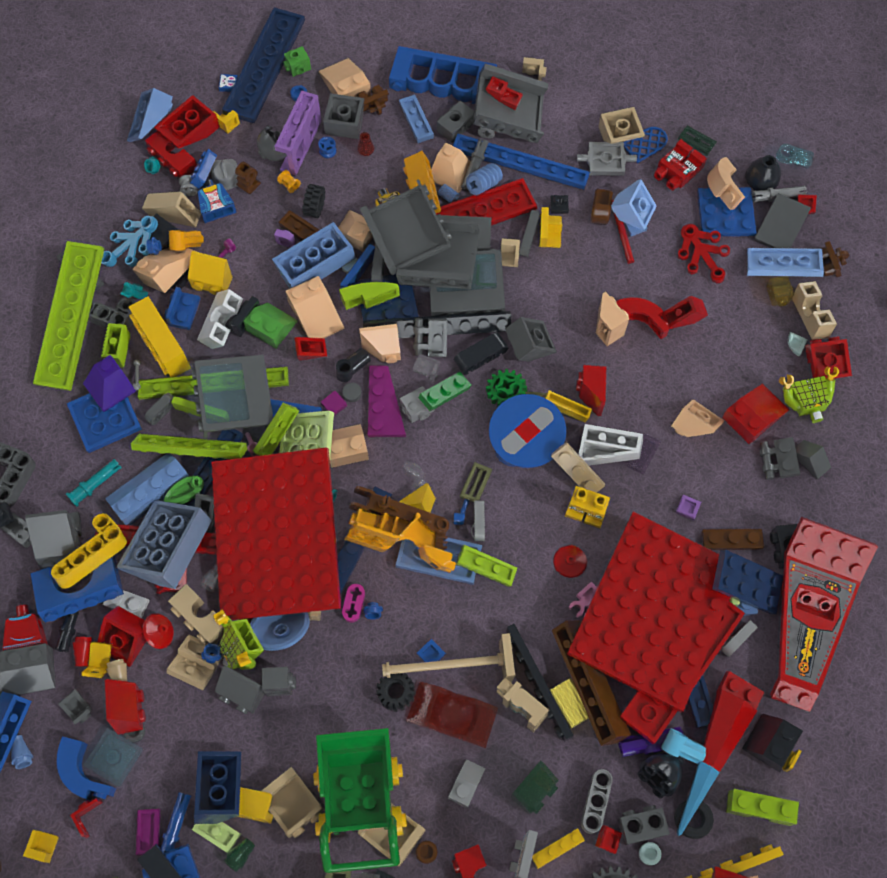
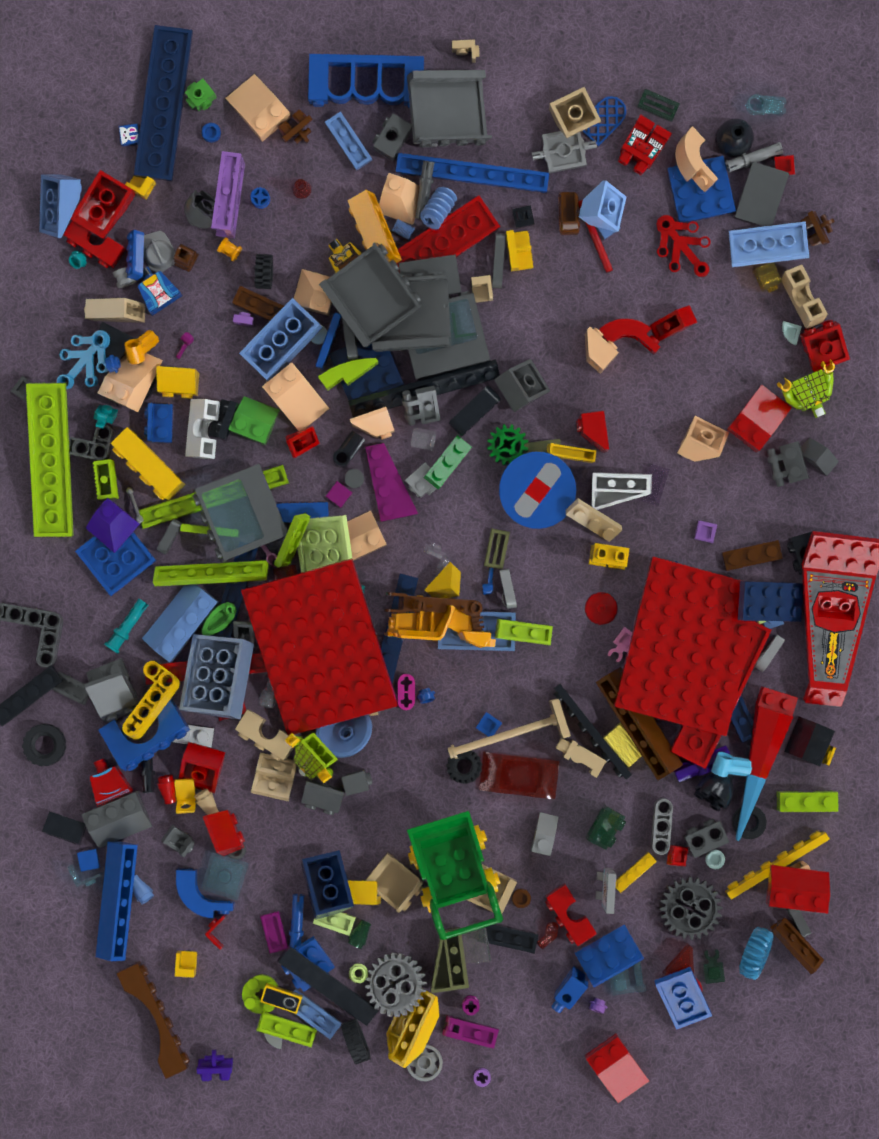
camera: 10 degrees left, 20 degrees up
(158, 631) = (232, 757): red piece -> none
(211, 649) = (288, 764): blue plate -> none
(344, 116) = (270, 157): dark grey slope -> none
(498, 89) = (438, 96): red slope -> none

